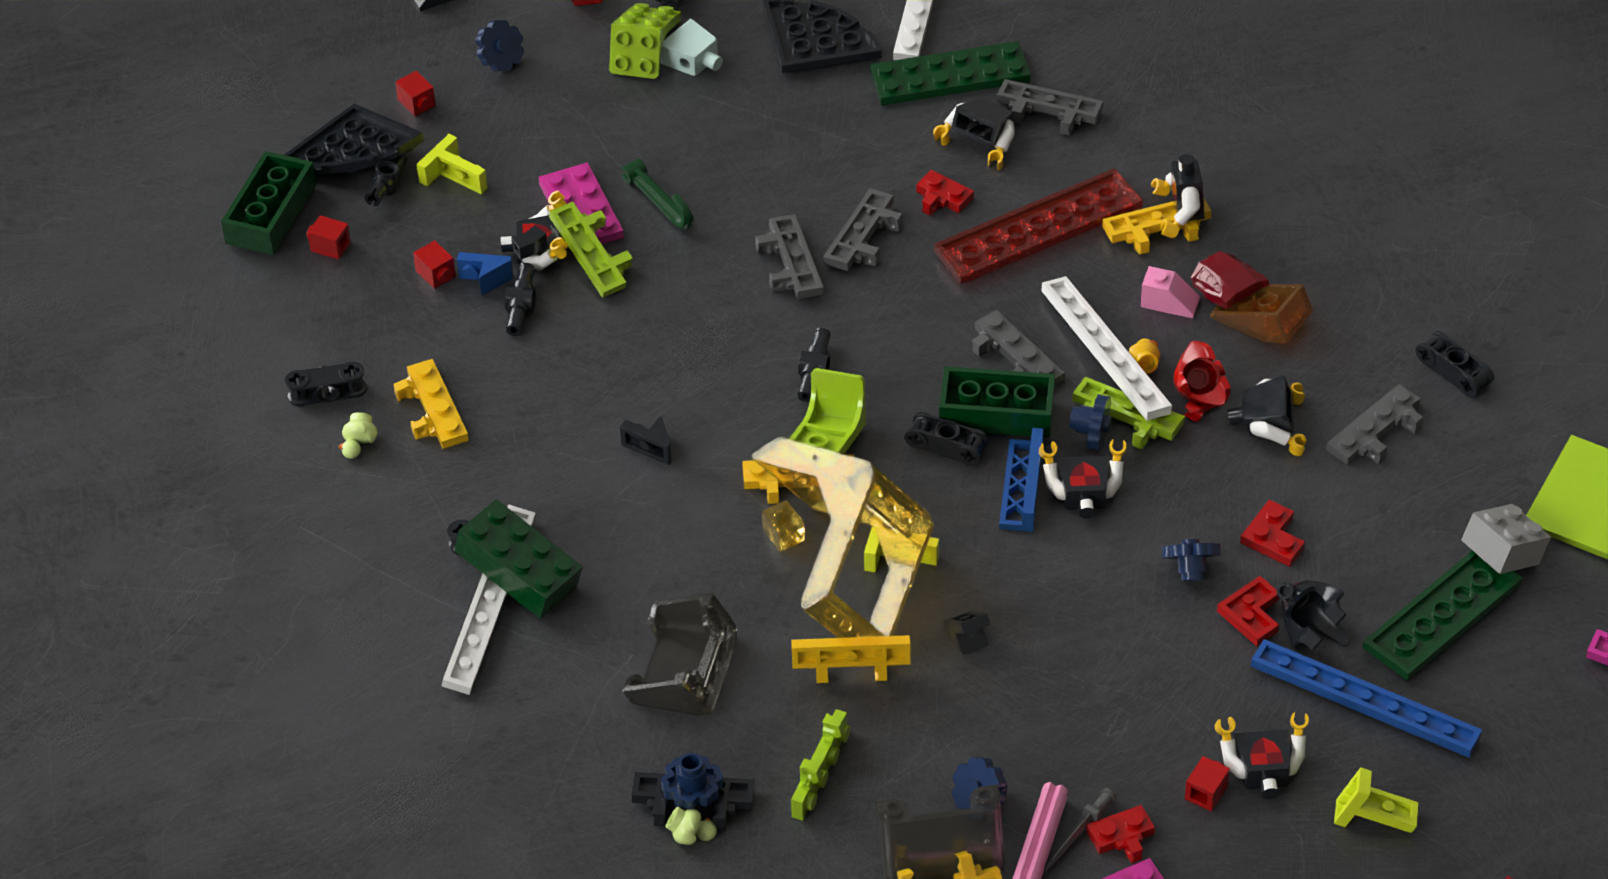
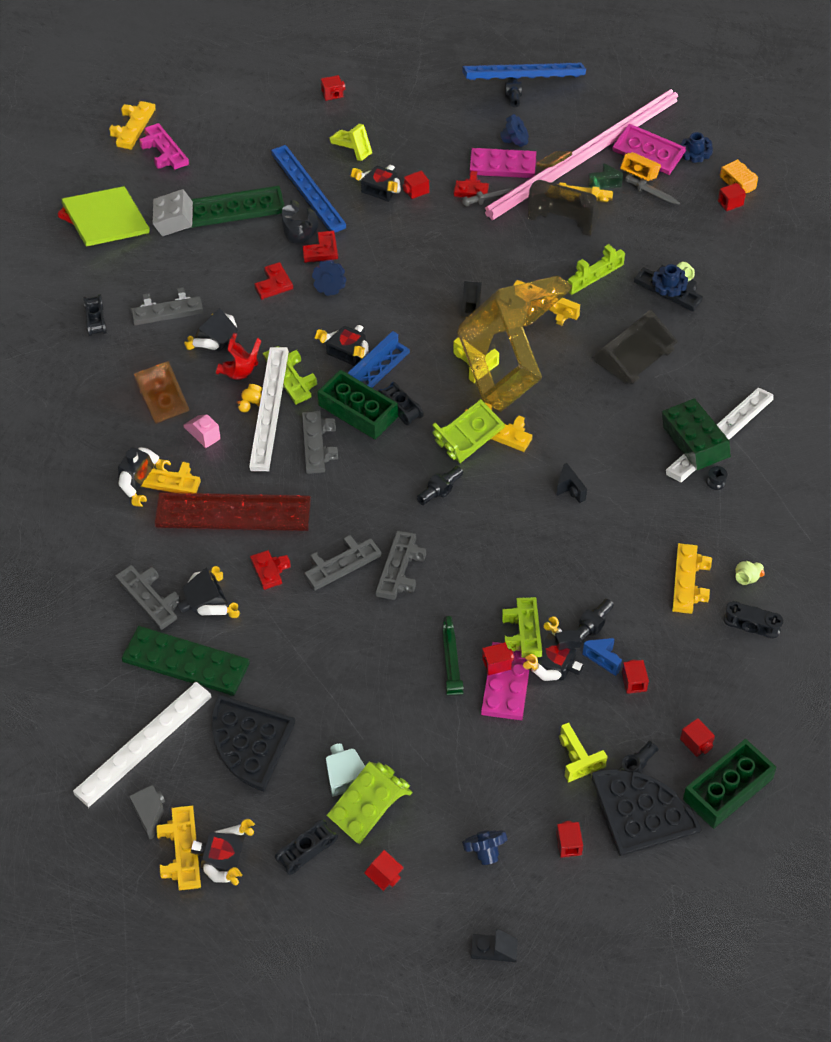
camera: 150 degrees left, 5 degrees up
(599, 194) = (497, 658): none -> red brick
(783, 525) = (529, 400): clear yellow brick -> none
(975, 774) = (526, 221): dark blue plant -> none
(1092, 421) = (316, 362): dark blue plant -> none
(1226, 279) = (163, 412): dark red slope -> none

